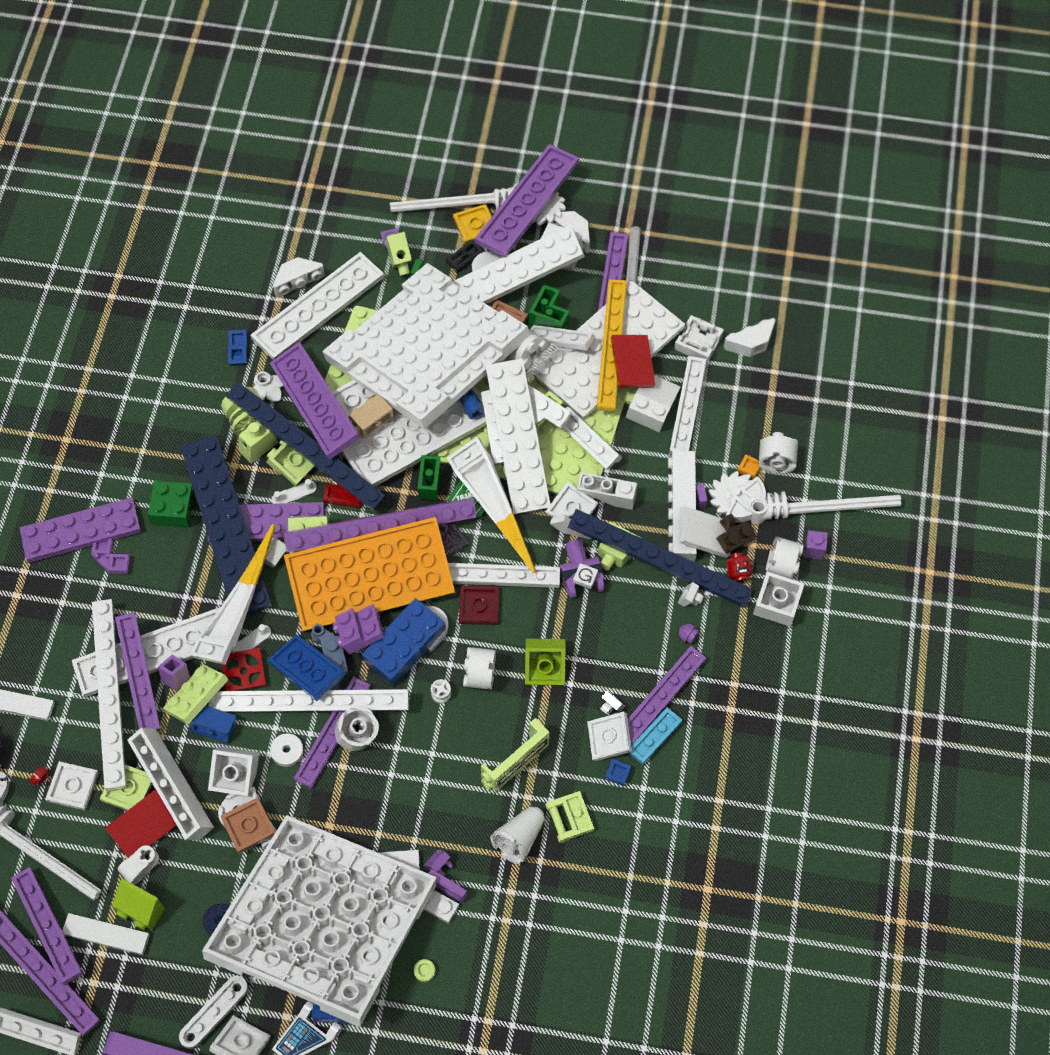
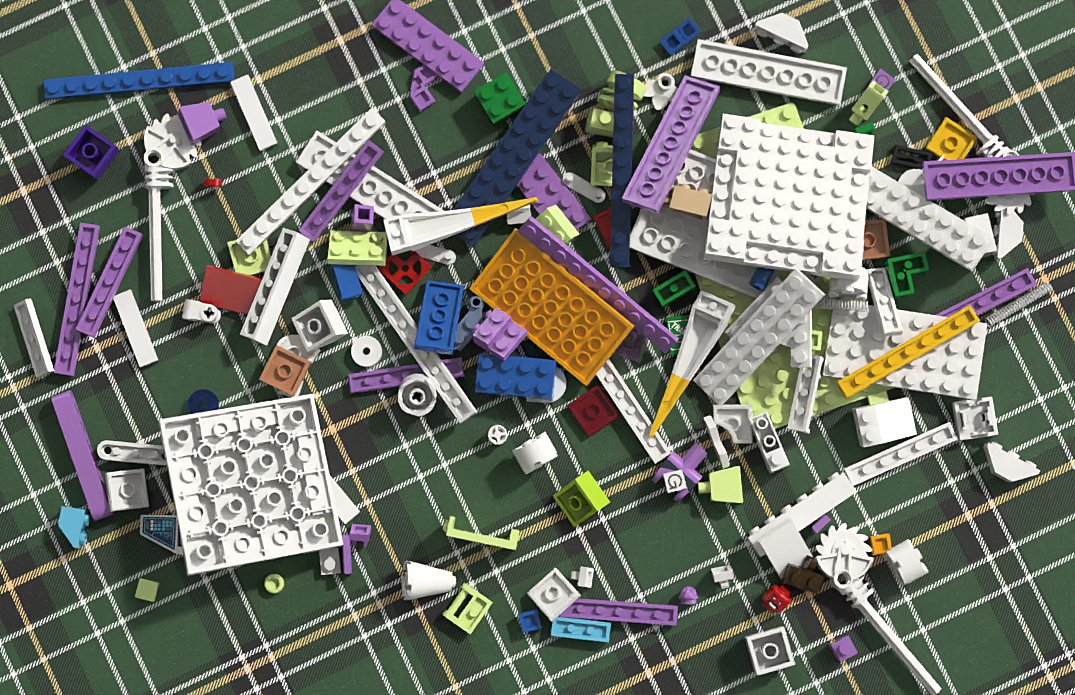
camera: 55 degrees right, 20 degrees up
(72, 785) = (224, 211): white tile -> none
(137, 905) = (169, 337): lime slope -> none
(633, 361) = (902, 382): red tile -> none
(660, 558) = (735, 529): dark blue plate -> none
(784, 557) = (809, 631): white brick -> none

